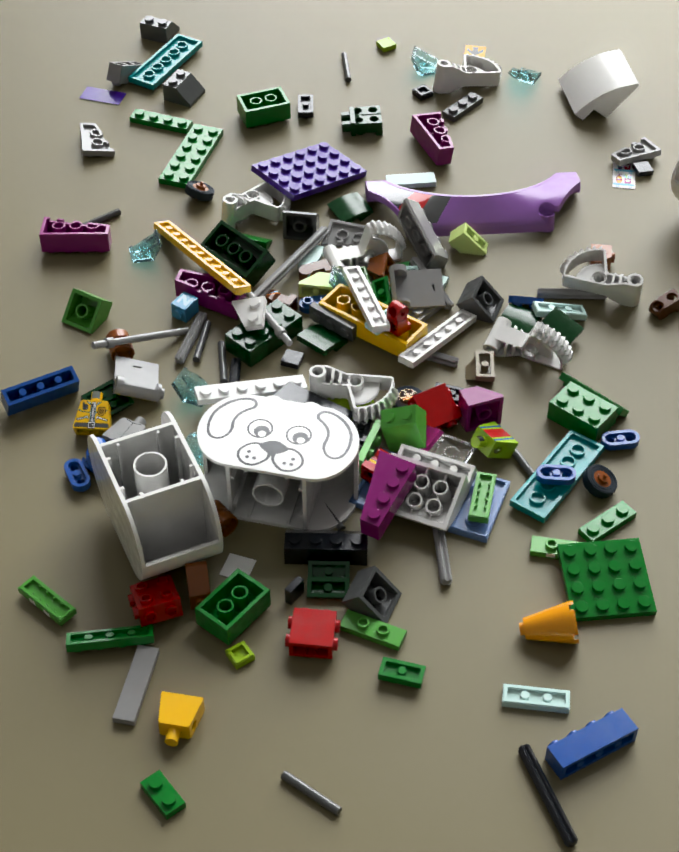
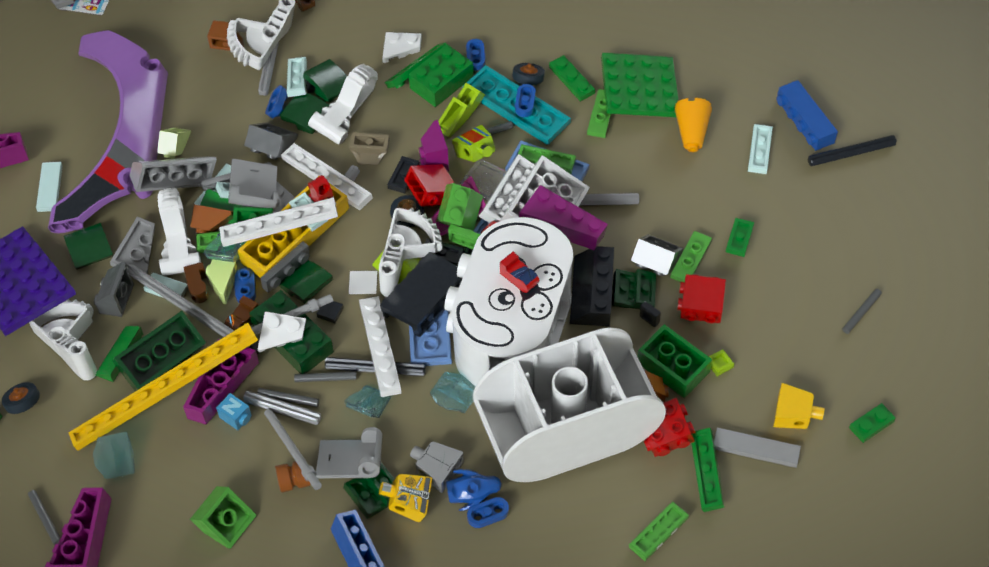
camera: 85 degrees left, 10 degrees up
(285, 433) = (518, 273): none -> red leg
(540, 430) = (460, 109): none -> lime slope
(621, 383) = (400, 45): none -> white wing

